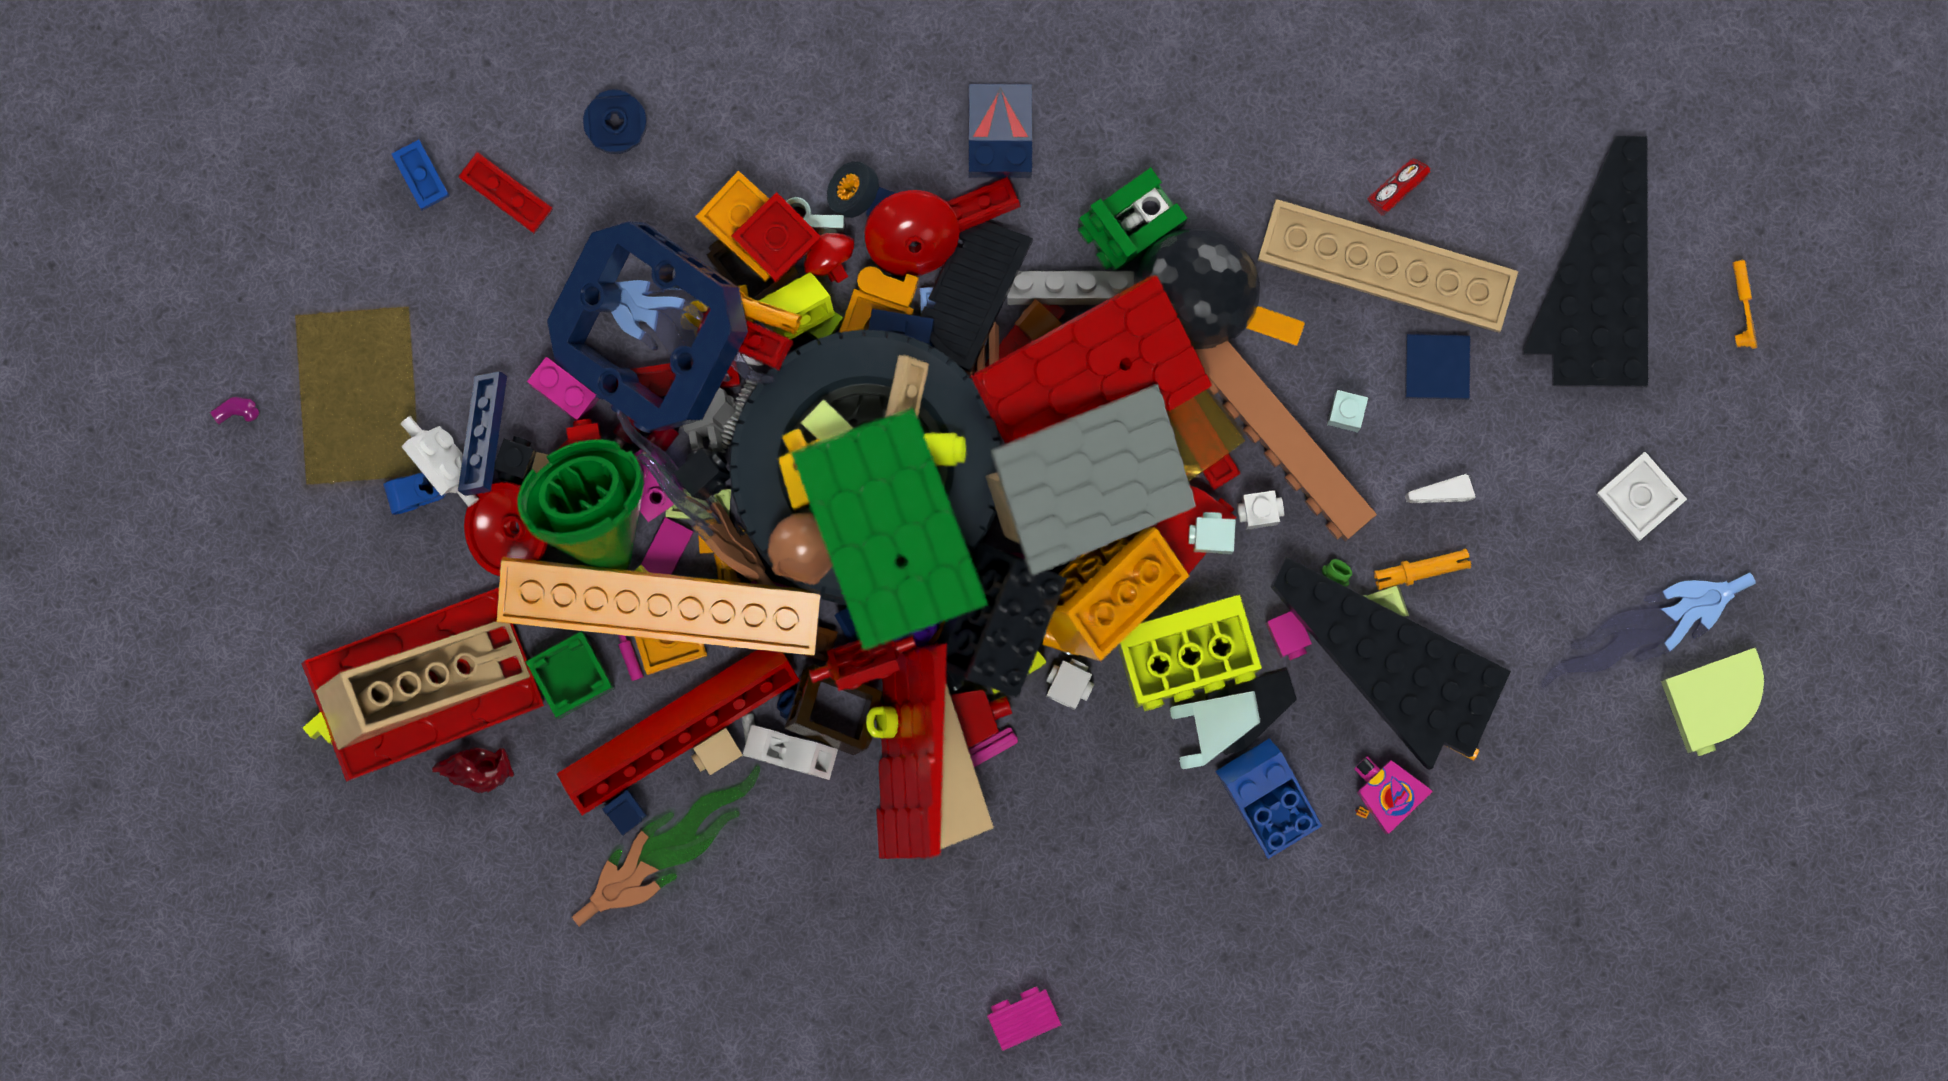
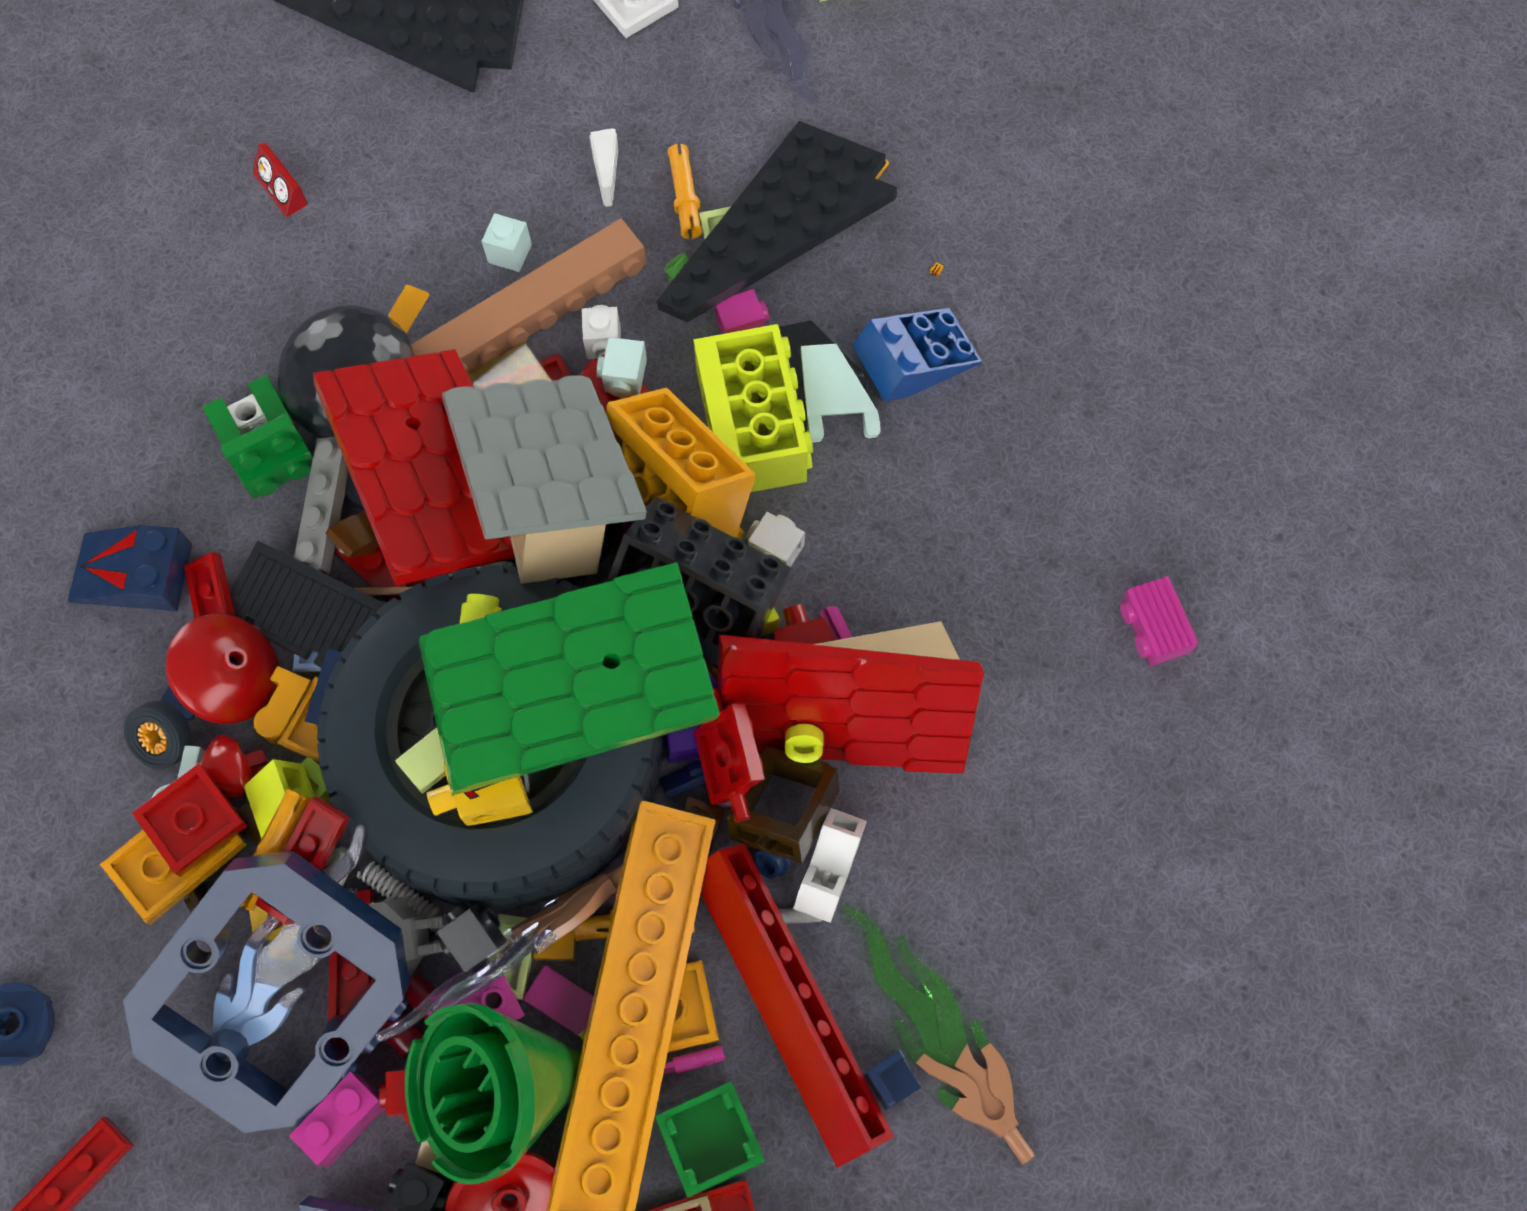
camera: 80 degrees left, 15 degrees down
(716, 752) = (825, 954): tan brick -> none
(799, 549) = (580, 799): nougat helmet -> none
(907, 385) = (392, 656): tan plate -> none
(1388, 266) = (358, 199): tan plate -> none
(1389, 792) = (920, 236): dark pink torso -> none
(1437, 367) = (474, 164): dark blue tile -> none

